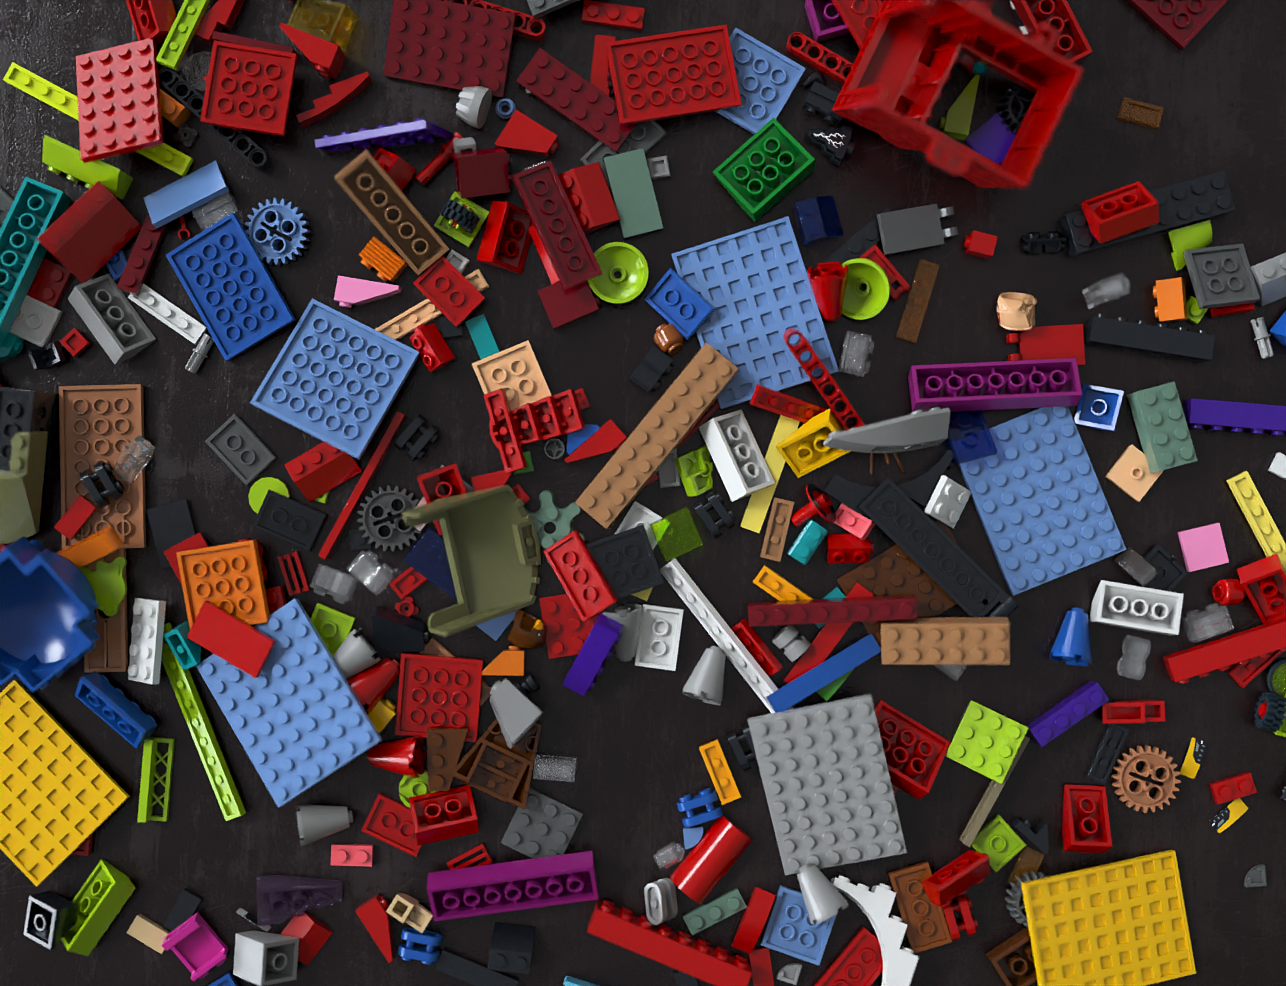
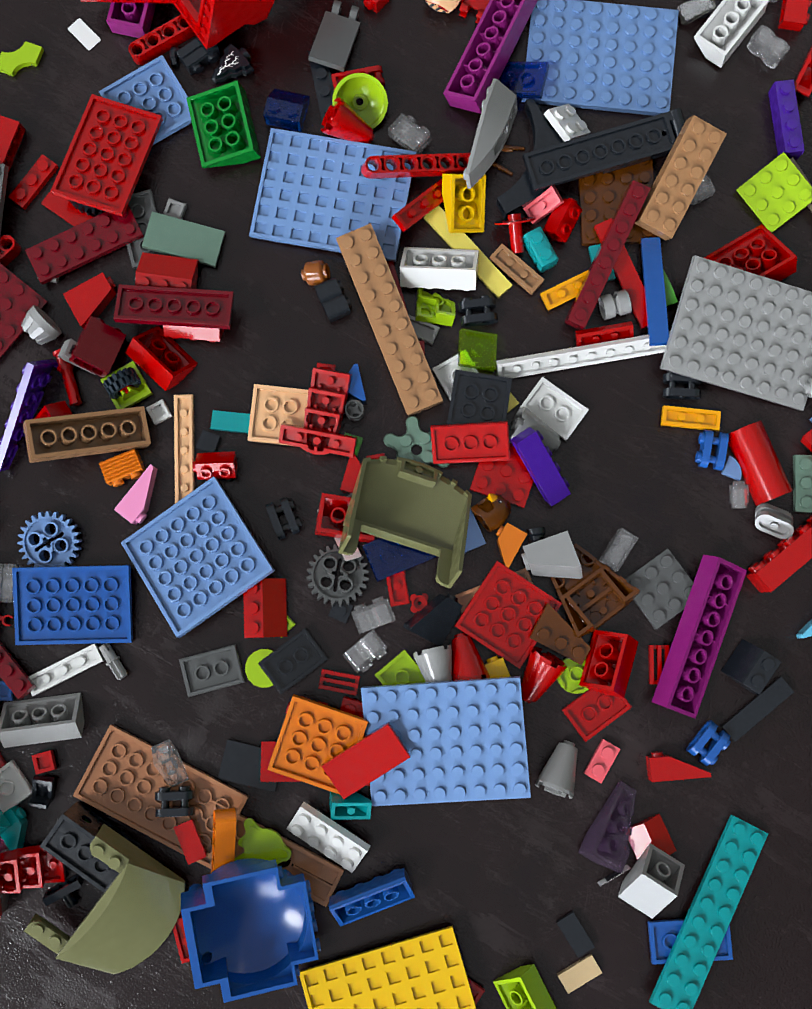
camera: 55 degrees left, 5 degrees down
(148, 782) = (445, 901): lime fence -> none
(196, 946) = (611, 938): dark pink panel -> none
(202, 733) = (433, 833): lime plate -> none
(362, 485) = (300, 588): red tile -> none
(410, 911) = (675, 736): tan brick -> none
(449, 291) = (178, 426): red plate -> none
(502, 103) = (54, 301): medium blue plate -> none
(568, 305) = (243, 337): dark red brick -> none
(603, 441) = (370, 369): red slope -> none
(630, 263) = (242, 271): lime dish -> none
(679, 304) = (292, 248): blue tile -> none
(707, 677) = (609, 386): light grey cone -> none
(917, 301) = (394, 67): clear orange tile -> none
(1073, 640) = (730, 84): blue cone -> none

